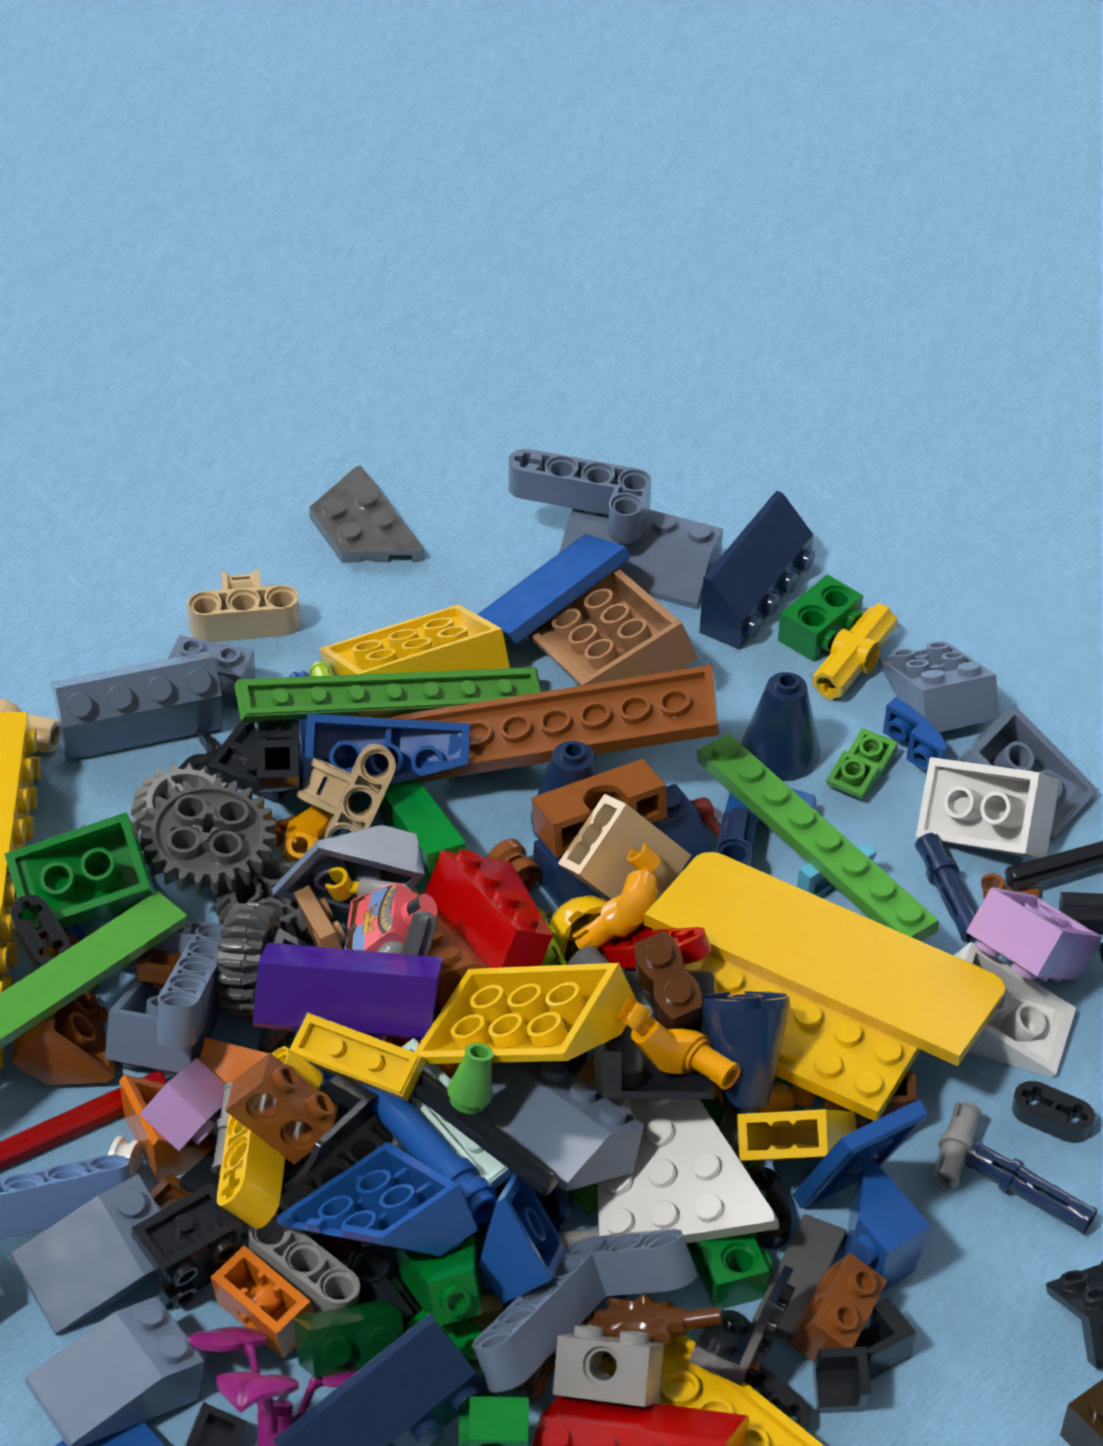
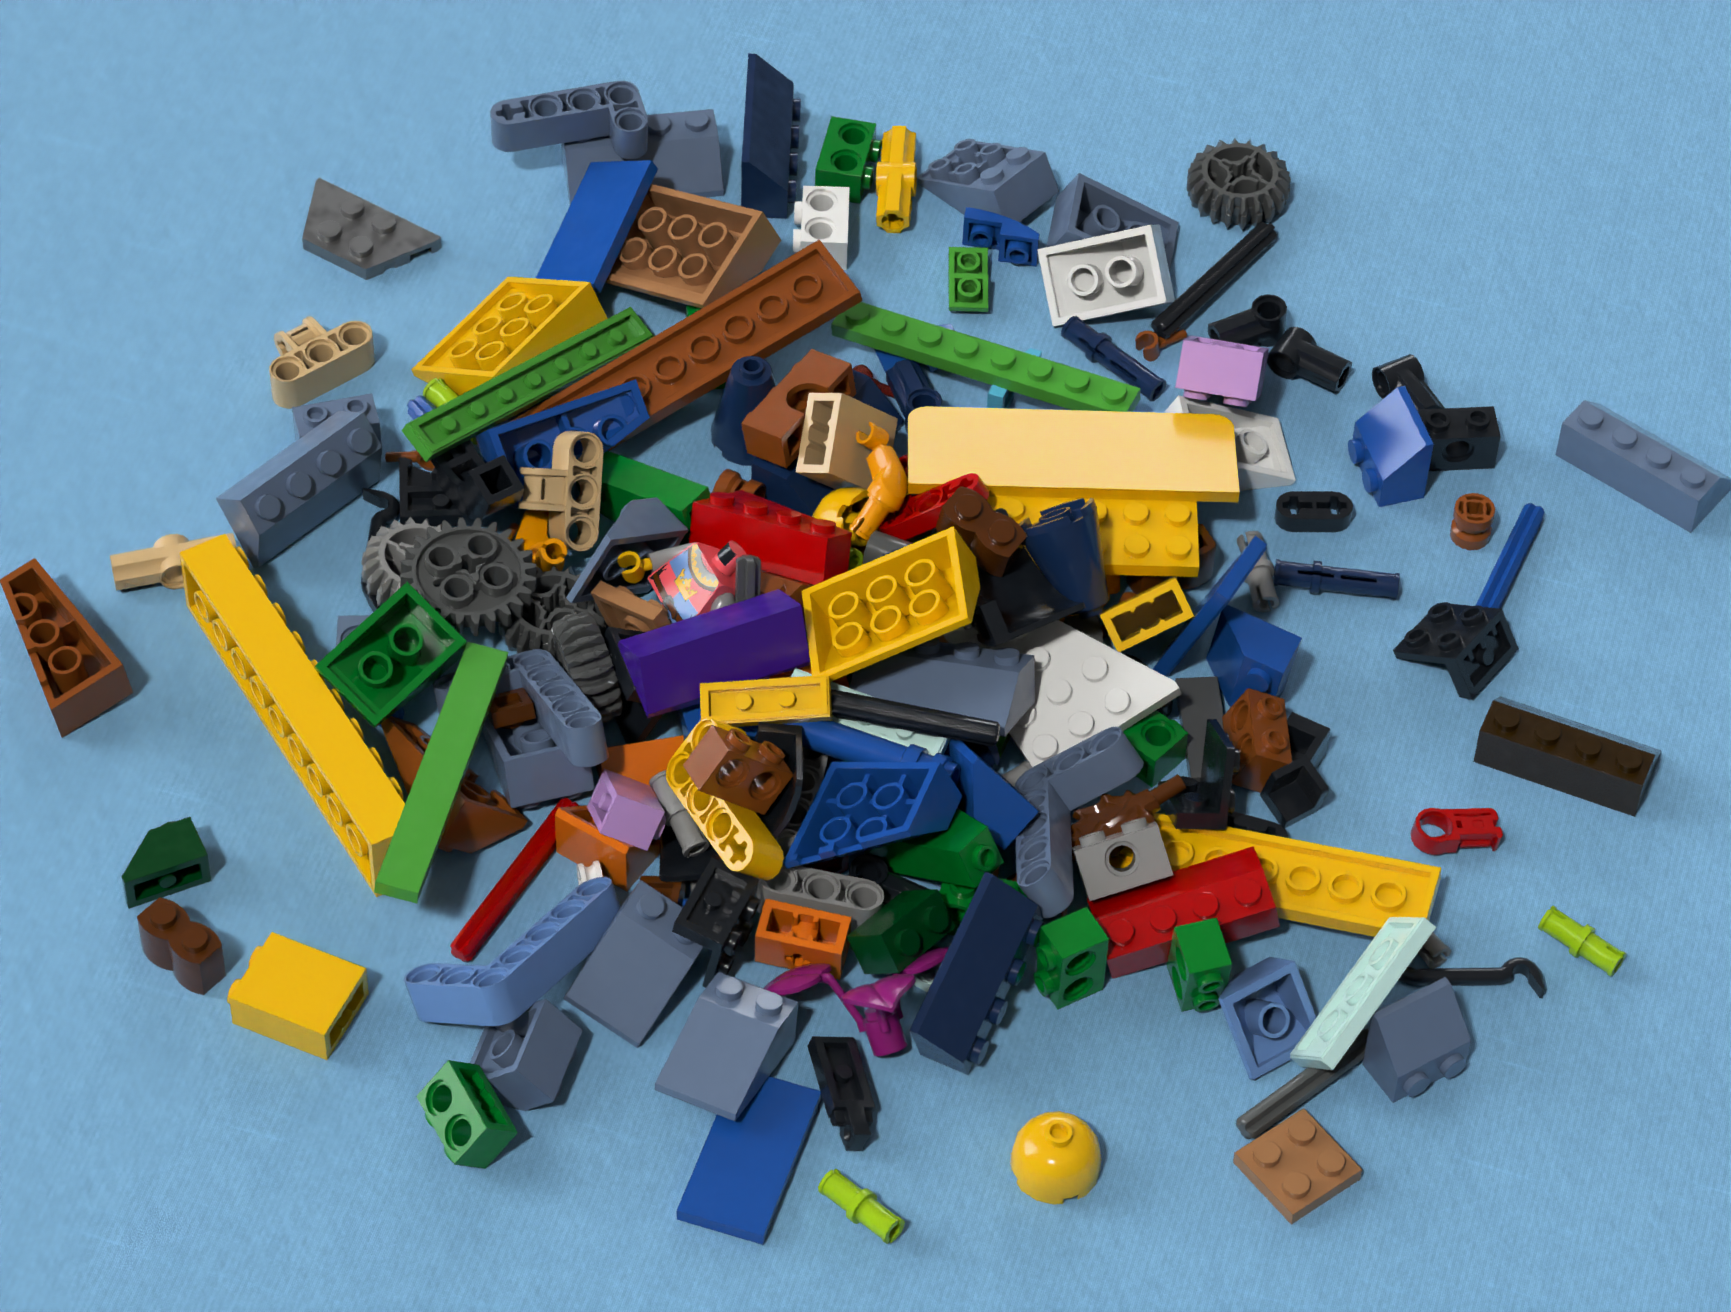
camera: 30 degrees left, 5 degrees up
(31, 938) = (394, 722): black beam -> none
(472, 1082) = (887, 678): bright green cone -> none
(677, 1049) = (1026, 580): light orange arm -> none
(754, 662) = (824, 218): none -> white brick
(784, 728) = (890, 270): dark blue cone -> none

